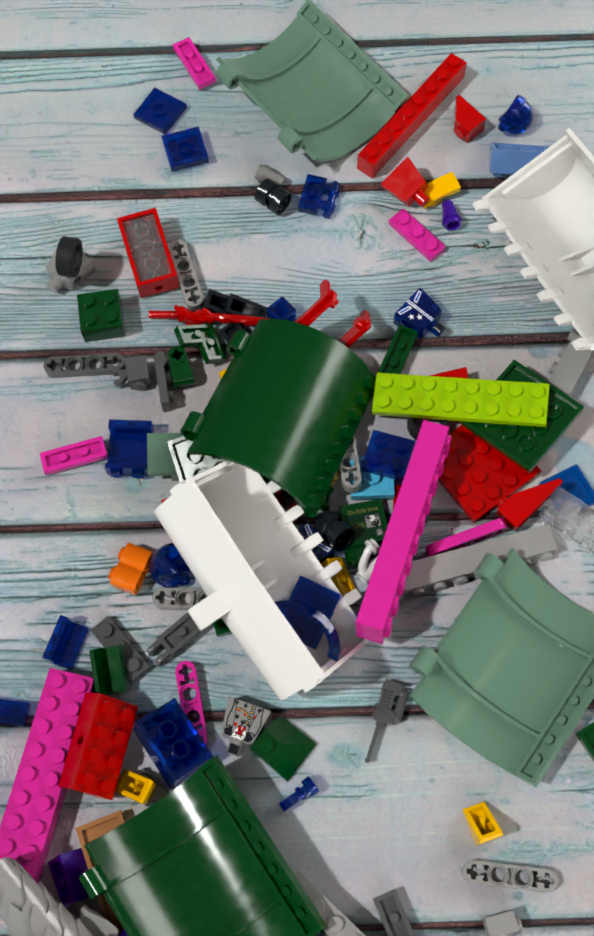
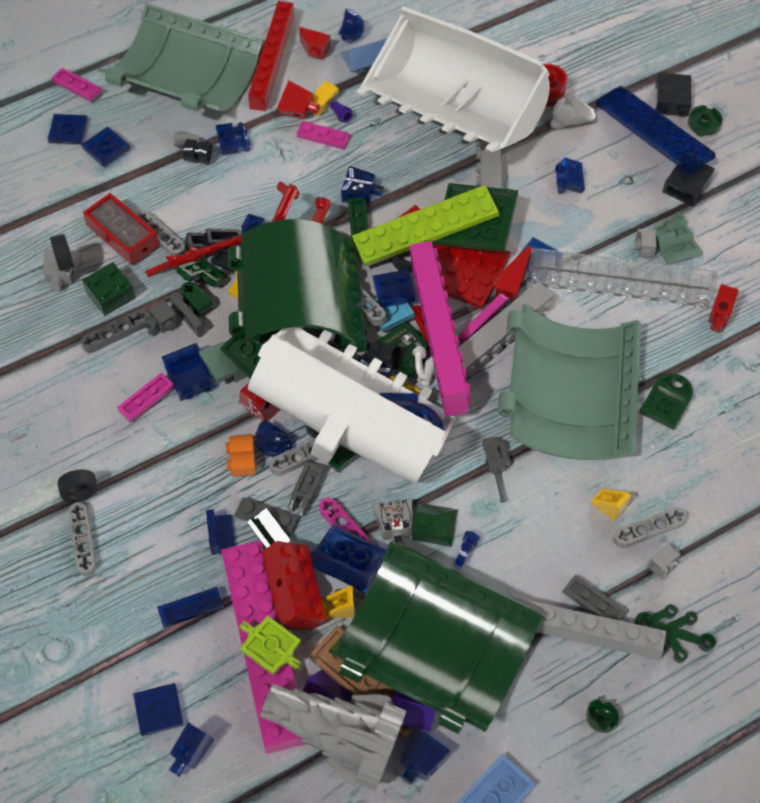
camera: 30 degrees left, 10 degrees down
(35, 804) = (270, 645): none -> lime plate

